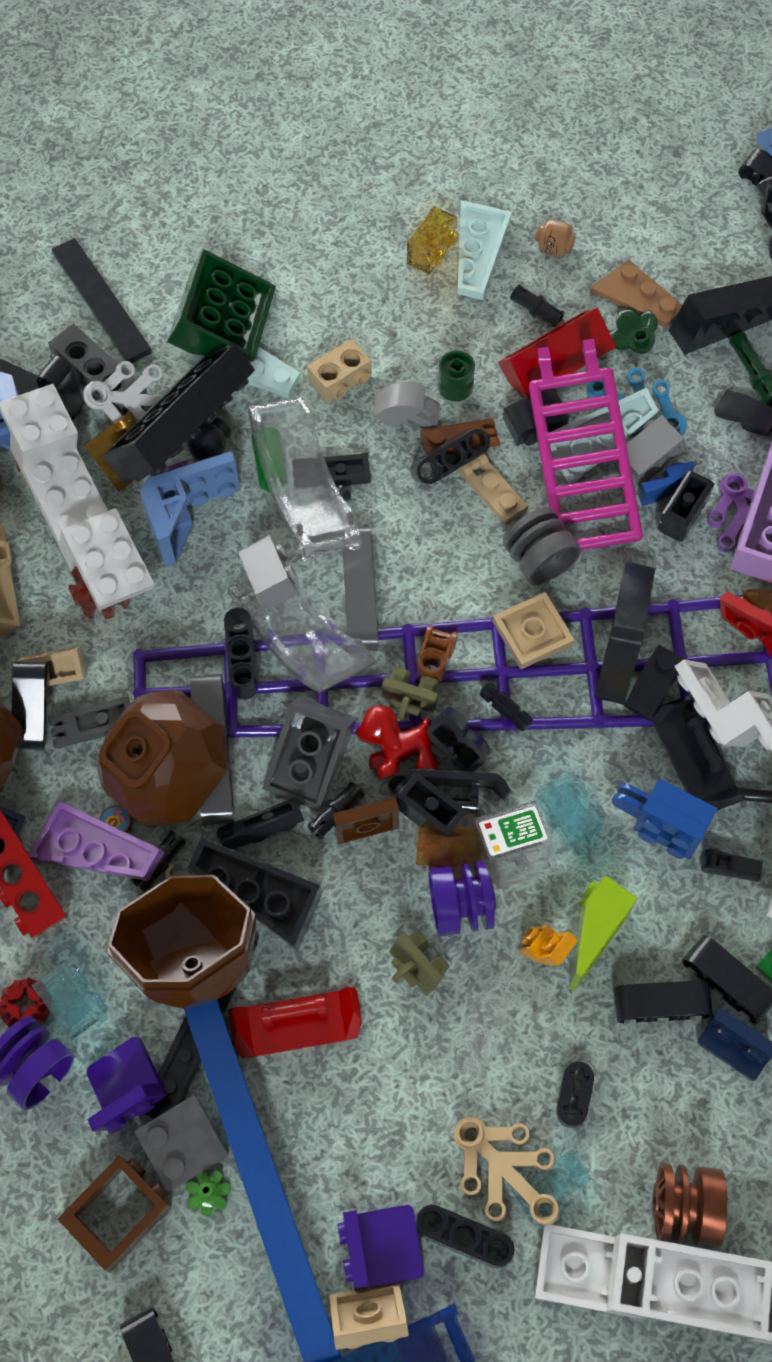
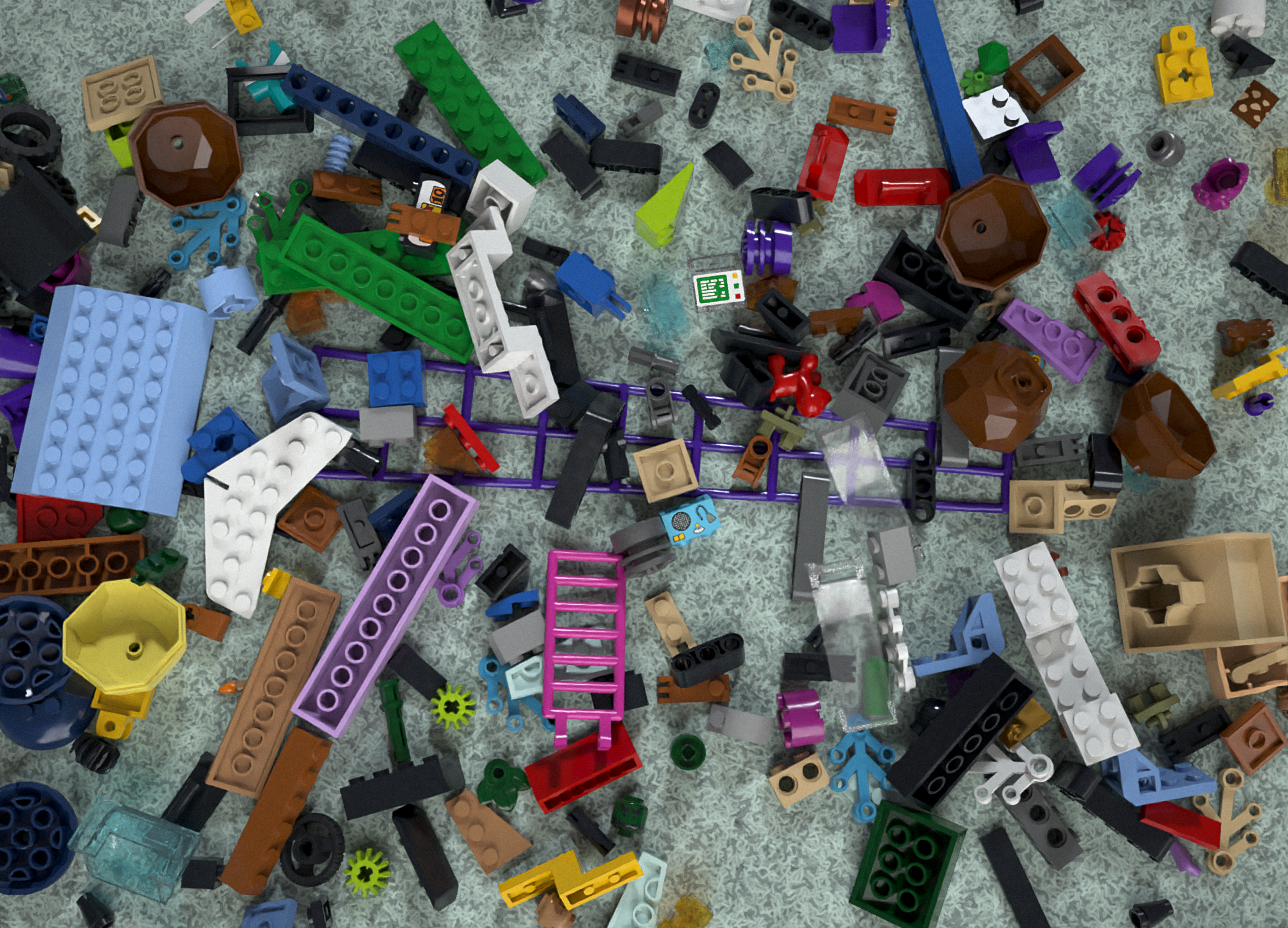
camera: 175 degrees left, 15 degrees up
(107, 650) = (1036, 506): none -> tan plate
(186, 1225) = (993, 58): none -> green slope
(258, 491) = (896, 650): none -> white plant
(279, 389) = (861, 764): none -> dark azure plant
(308, 863) = (879, 298): none -> magenta brick
(346, 415) = (800, 718): none -> magenta brick
(362, 1113) = (861, 115): none -> dark orange hinge
(405, 1027) = (823, 161): none -> red piece
(451, 951) = (782, 205): none -> black beam
(496, 587) = (690, 520): none -> medium azure brick
(502, 320) = (629, 816): none -> dark green head
(528, 1014) = (728, 164): none -> black slope
(546, 945) = (705, 205): light orange slope -> none
(548, 259) = (570, 880): none -> yellow bracket
(552, 695) = (660, 406): none -> dark grey piece
(571, 756) = (653, 360): none -> dark grey axle
(592, 636) = (615, 455): none -> black piece
(651, 1063) = (643, 117): none -> dark grey bar
(660, 1124) = (646, 75): none -> black hinge
(689, 258) = (426, 855): none -> black piece
(701, 386) = (453, 697): none -> lime gear
(730, 823) = (539, 281): none -> flat silver cone
(742, 246) = (358, 866): none -> lime gear

